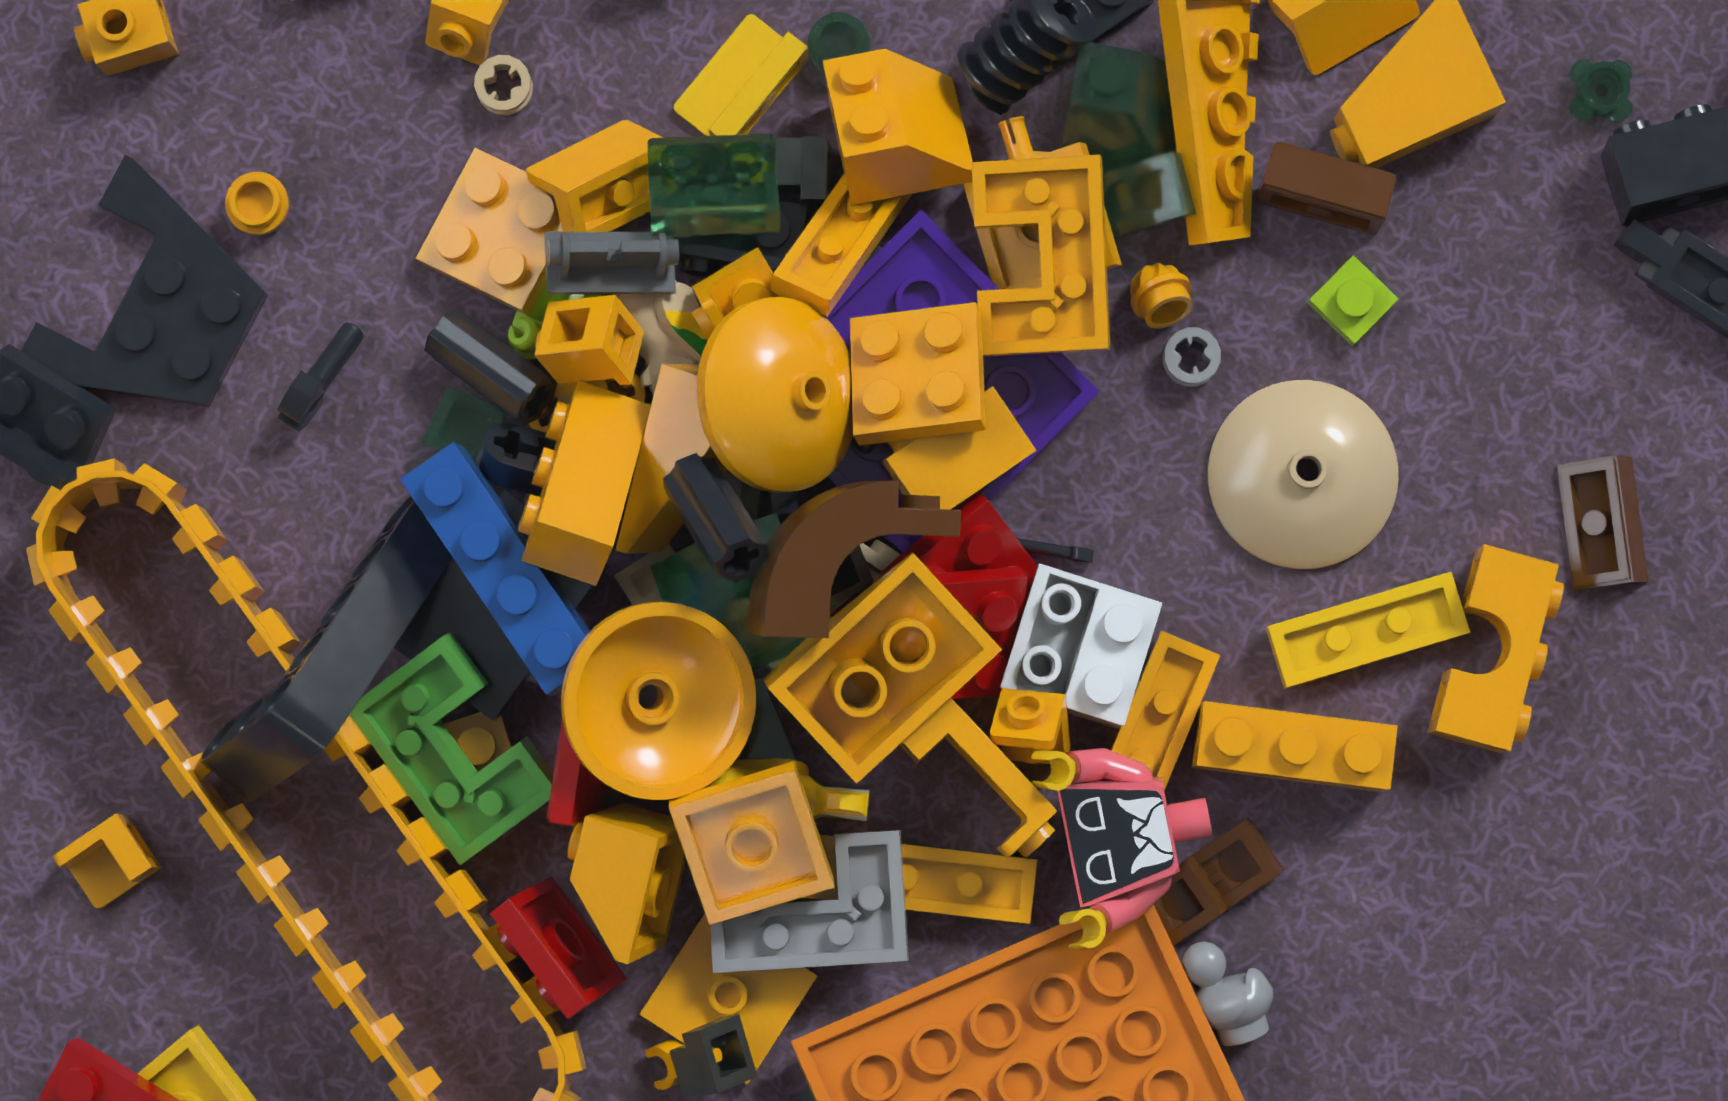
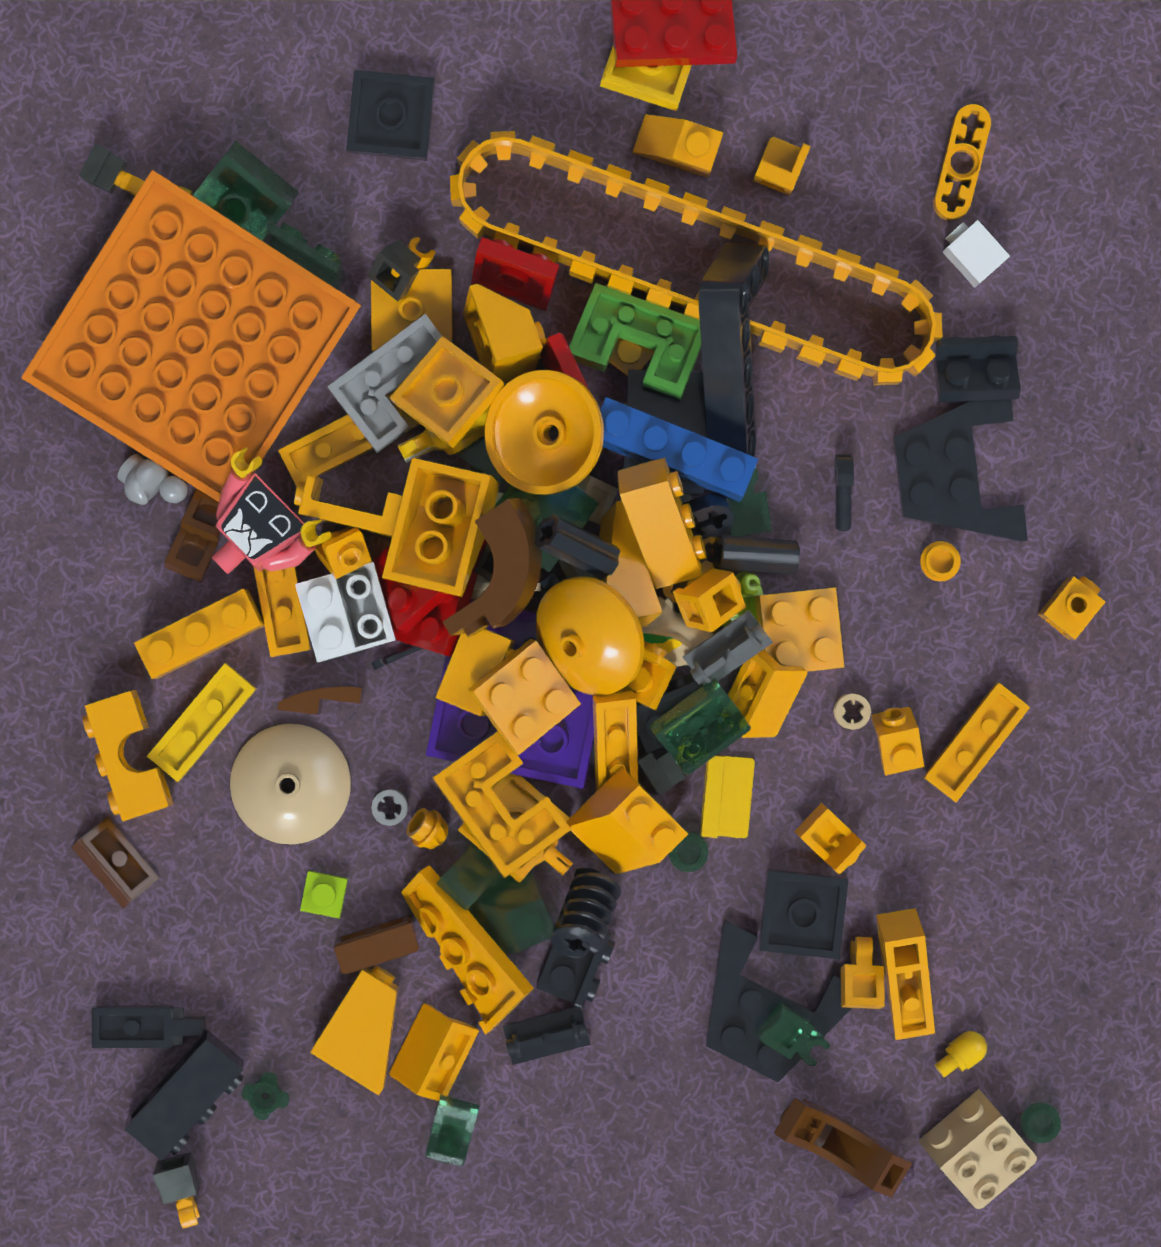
camera: 145 degrees right, 5 degrees up
(225, 979) = (678, 143): none -> light orange slope
(1207, 564) = (311, 701): none -> reddish brown slope

